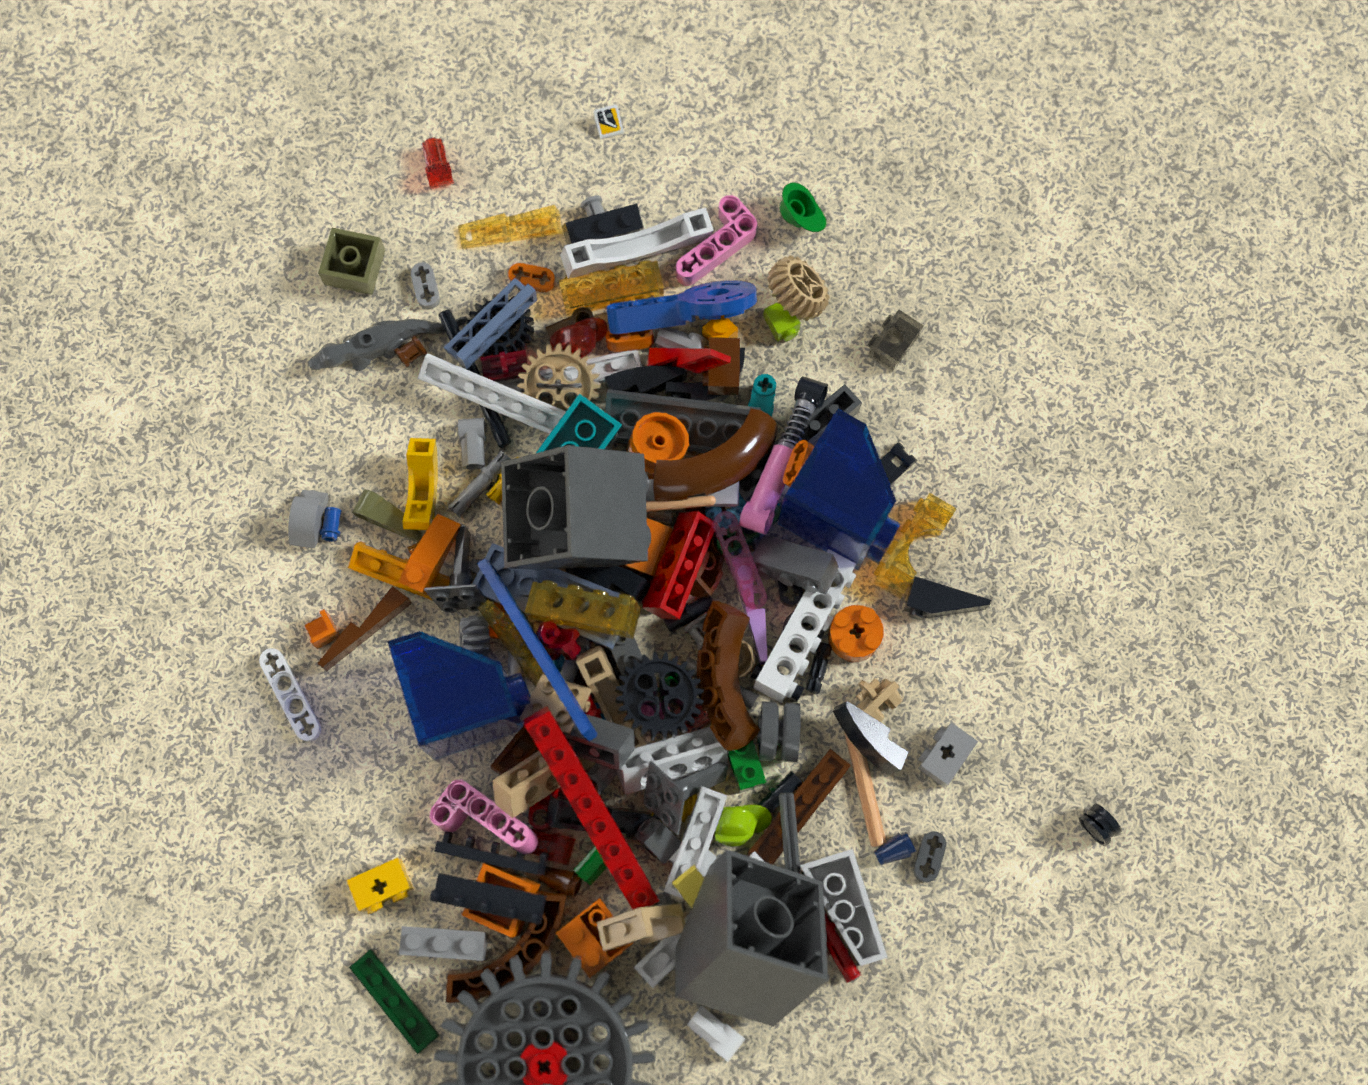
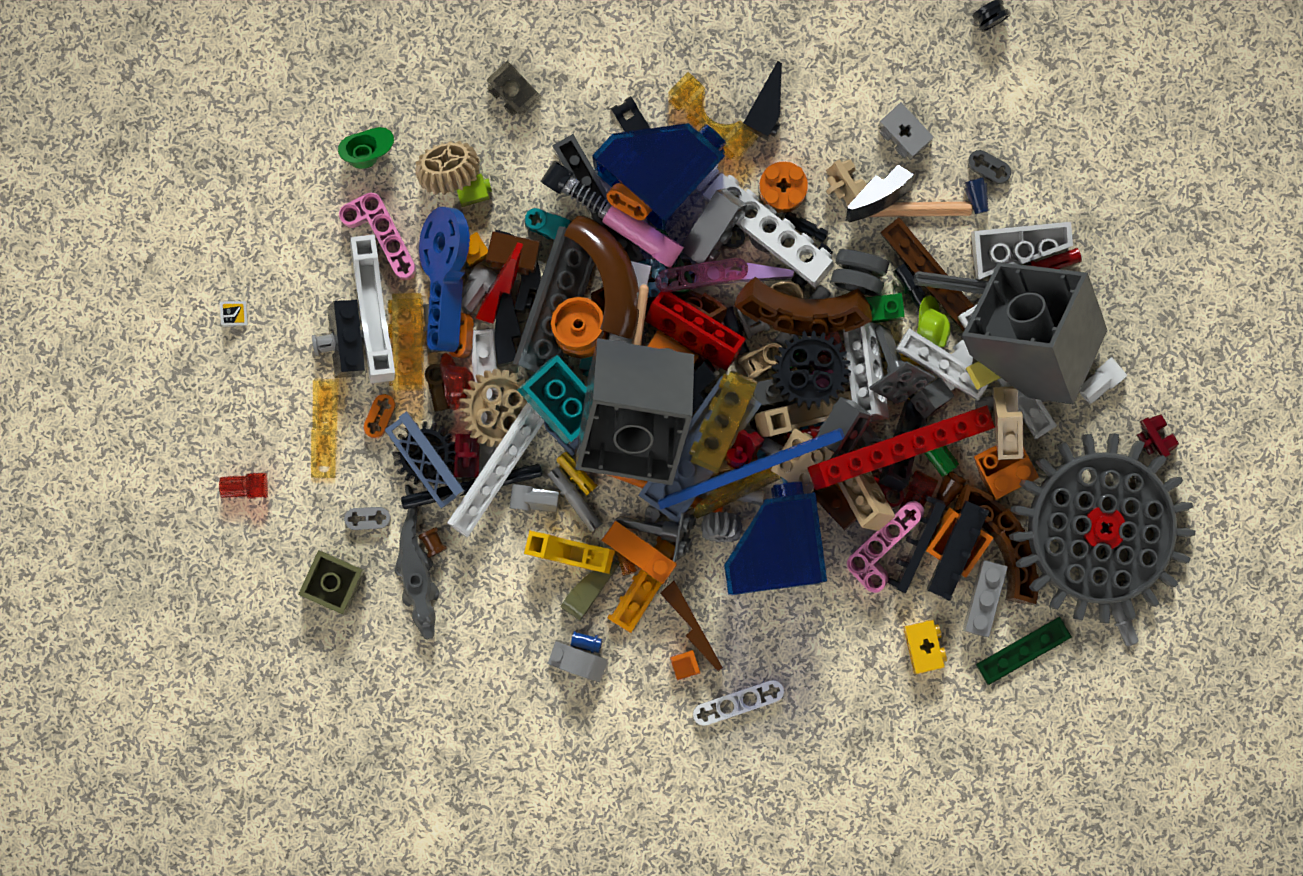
camera: 75 degrees left, 10 degrees up
(661, 641) = (759, 361): none -> tan piece

